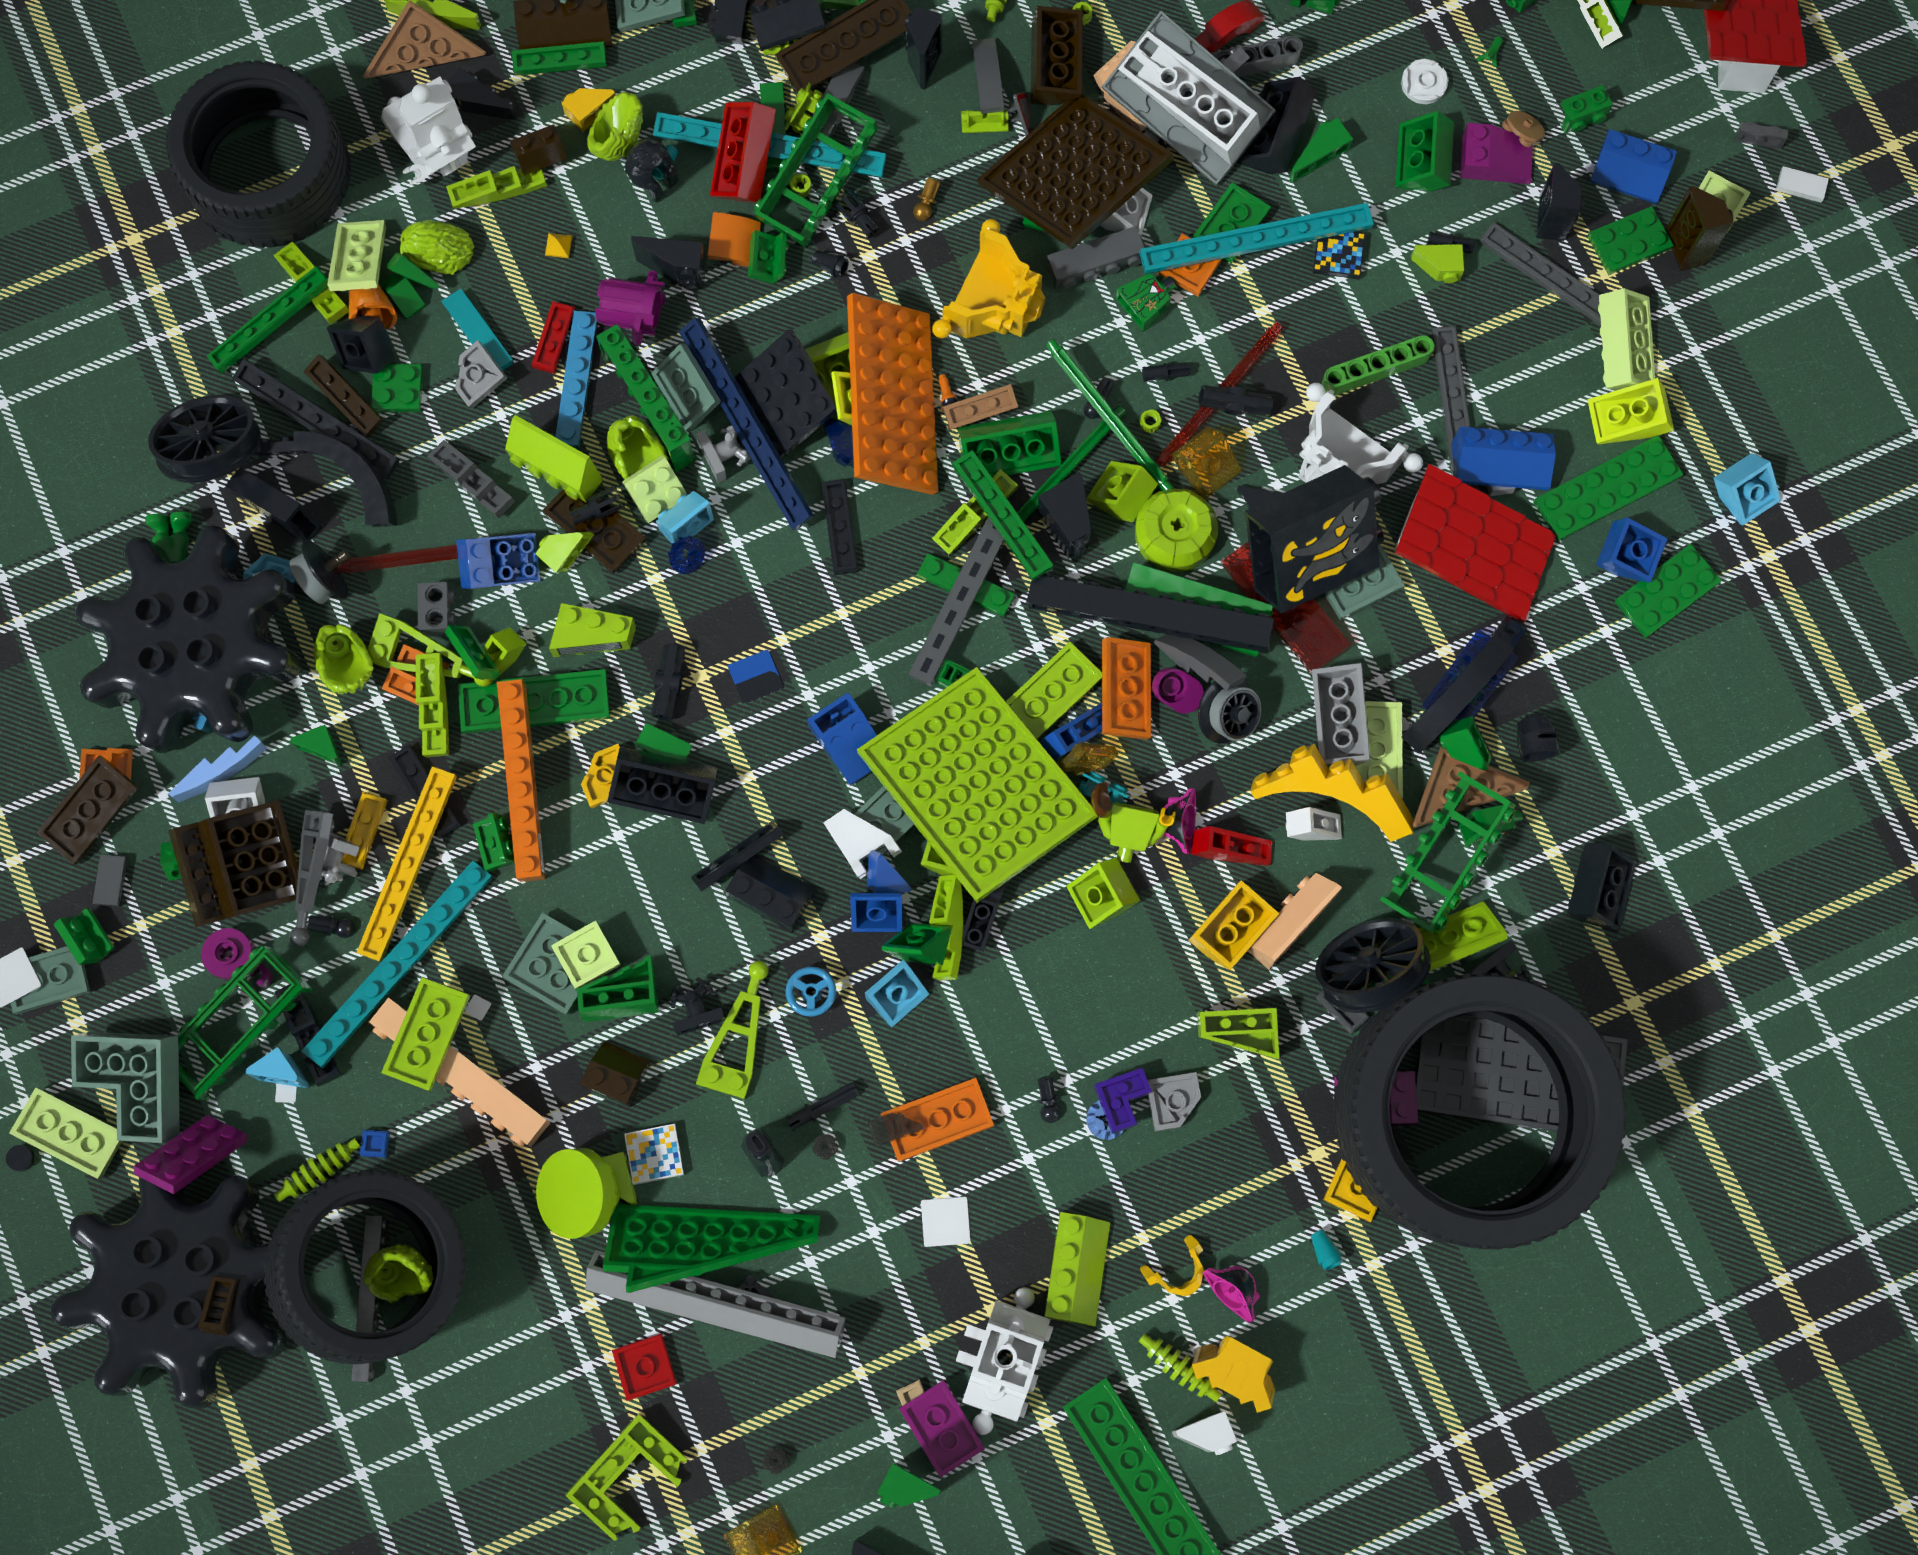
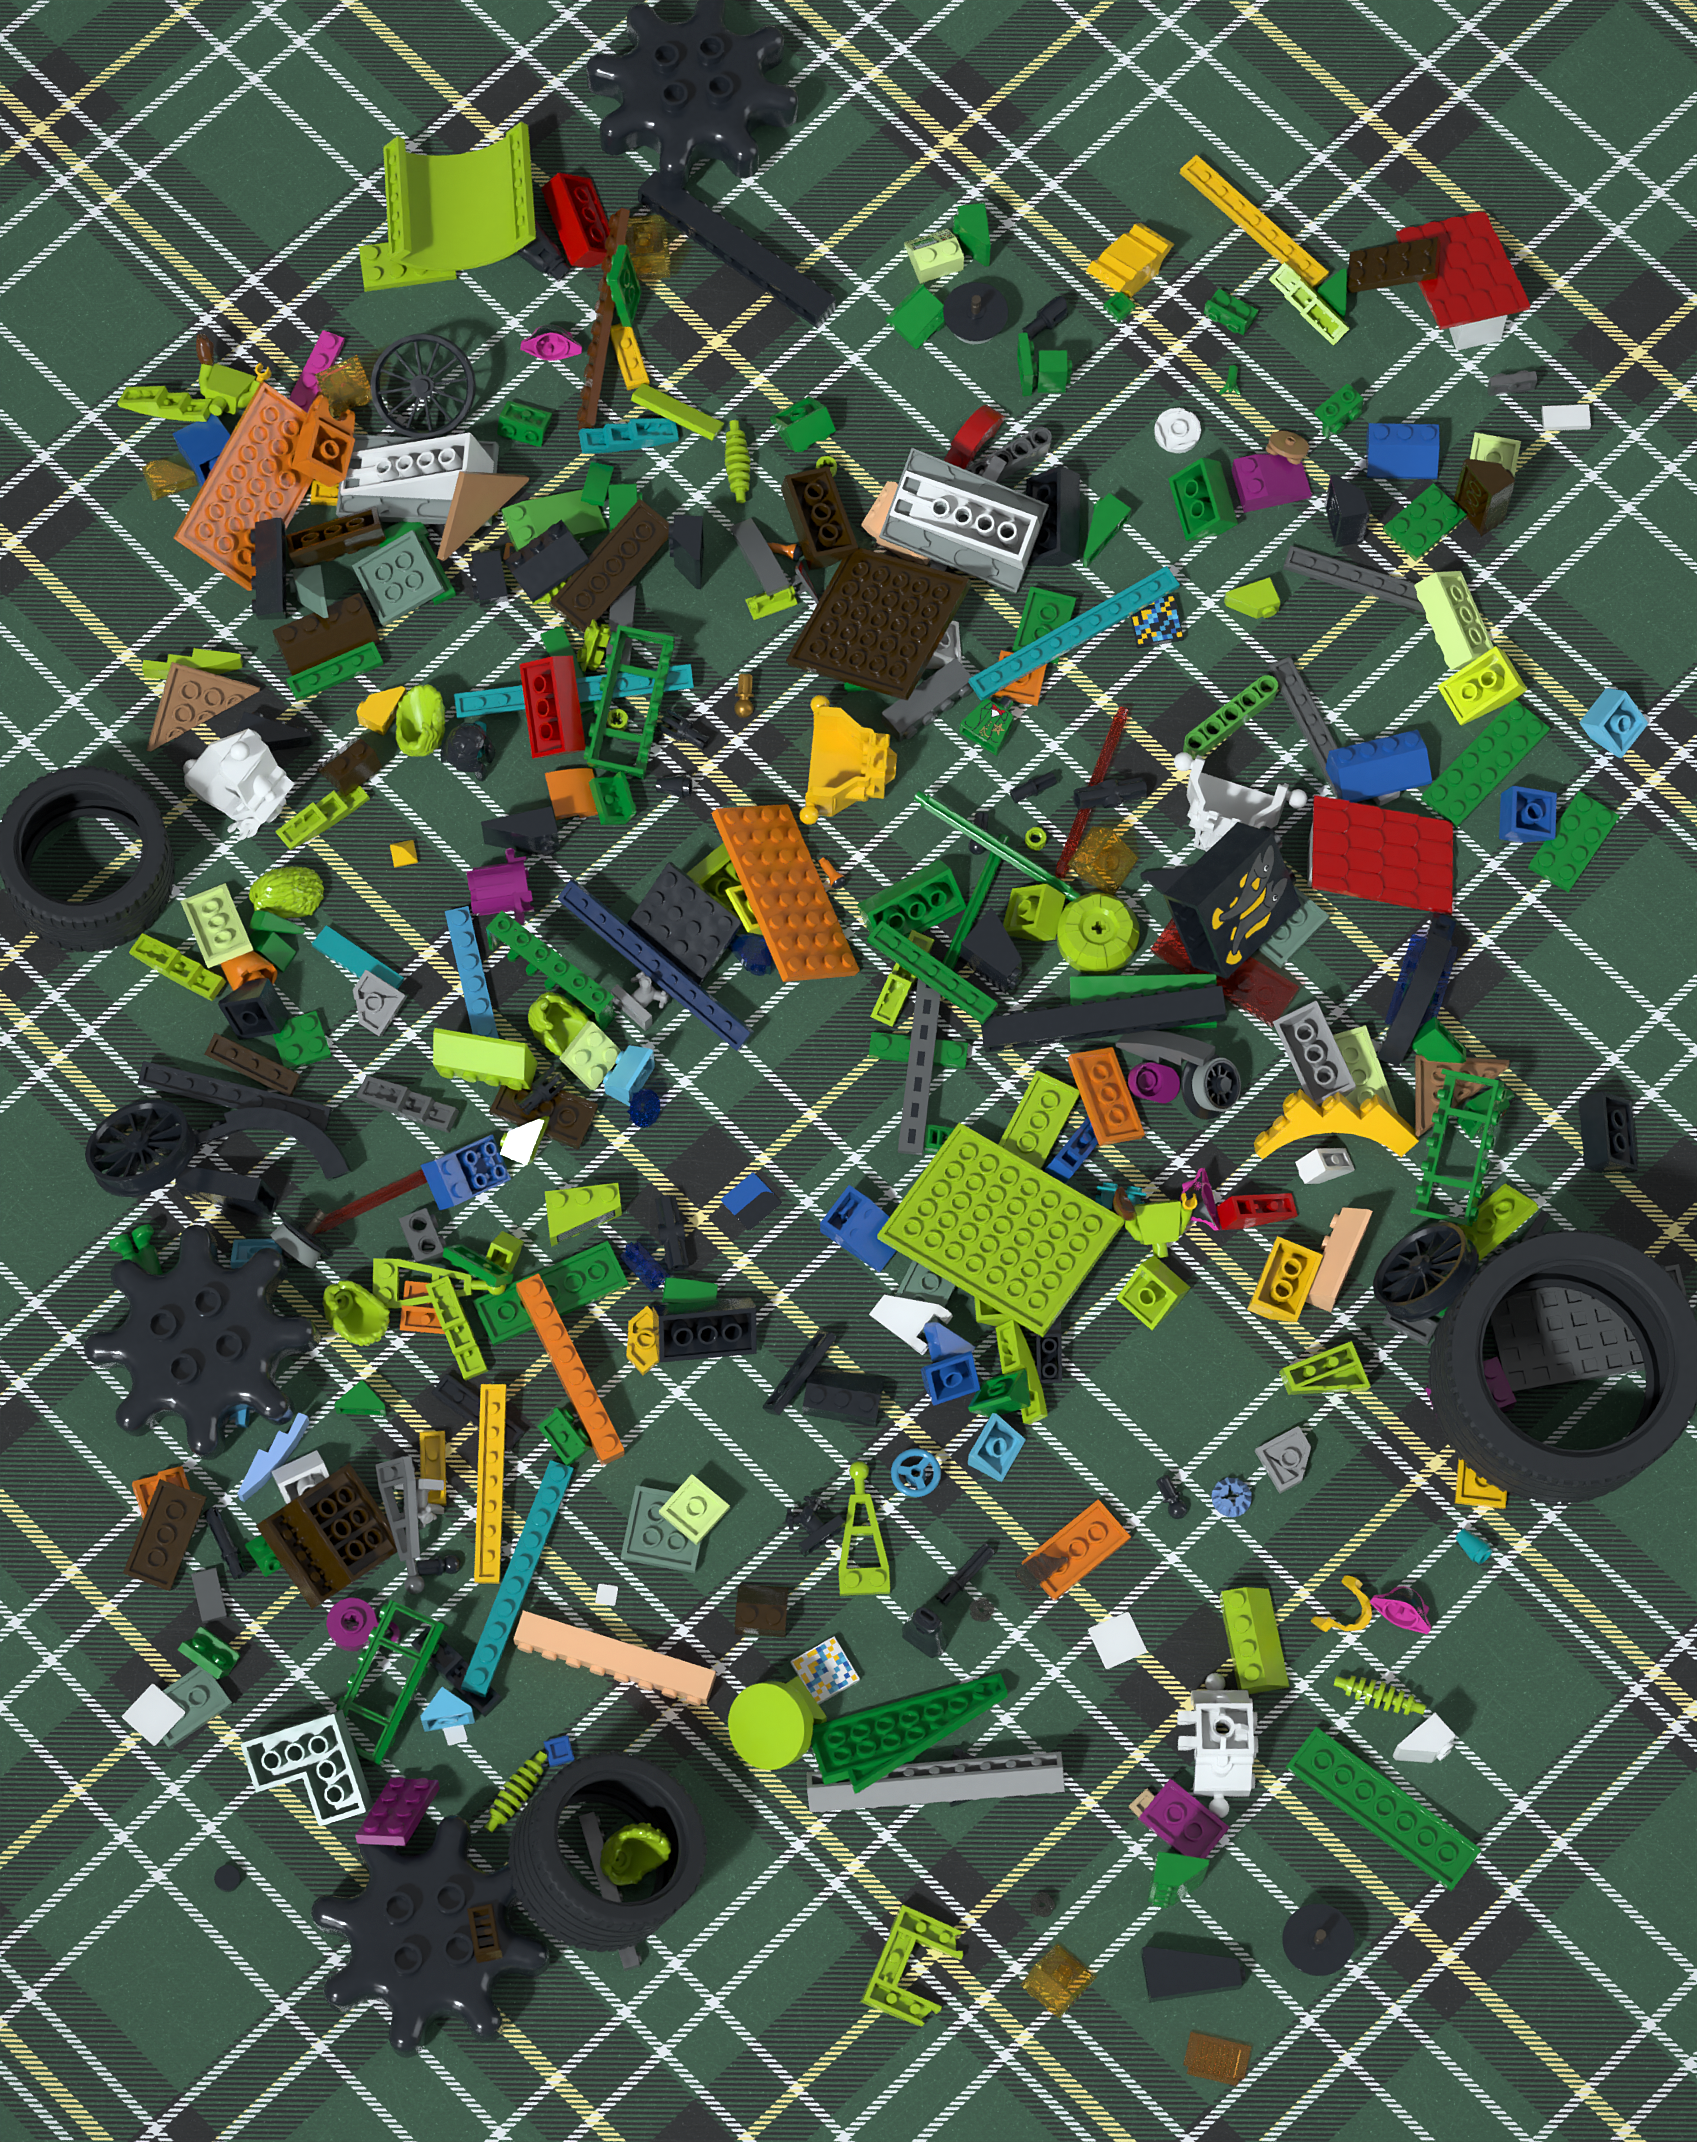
camera: 20 degrees left, 5 degrees down
(67, 1133) = (265, 1839): yellowish green plate -> none
(143, 836) = (229, 1551): none -> black pin
(268, 320) = (151, 1015): green tile -> none
(425, 1034) = (574, 1630): lime plate -> none
(553, 337) = (433, 943): red tile -> none
(621, 994) = (740, 1534): green wedge -> none
(631, 704) = (644, 1265): none -> clear blue hinge
(644, 1367) = (889, 1865): red tile -> none
(686, 387) = (584, 947): sand green plate -> none
(839, 527) = (778, 1034): black tile -> none
(980, 406) = (870, 877): medium nougat container -> none
(1021, 80) = (792, 551): none -> orange piece
(1087, 758) = (1094, 1172): clear yellow wing -> none
(1115, 1097) = (1234, 1468): dark purple plate -> none
(1236, 1371) = (1433, 1674): yellow slope -> none
(1443, 239) = (1243, 579): black axle -> none
(1536, 738) = (1501, 1018): black helmet -> none

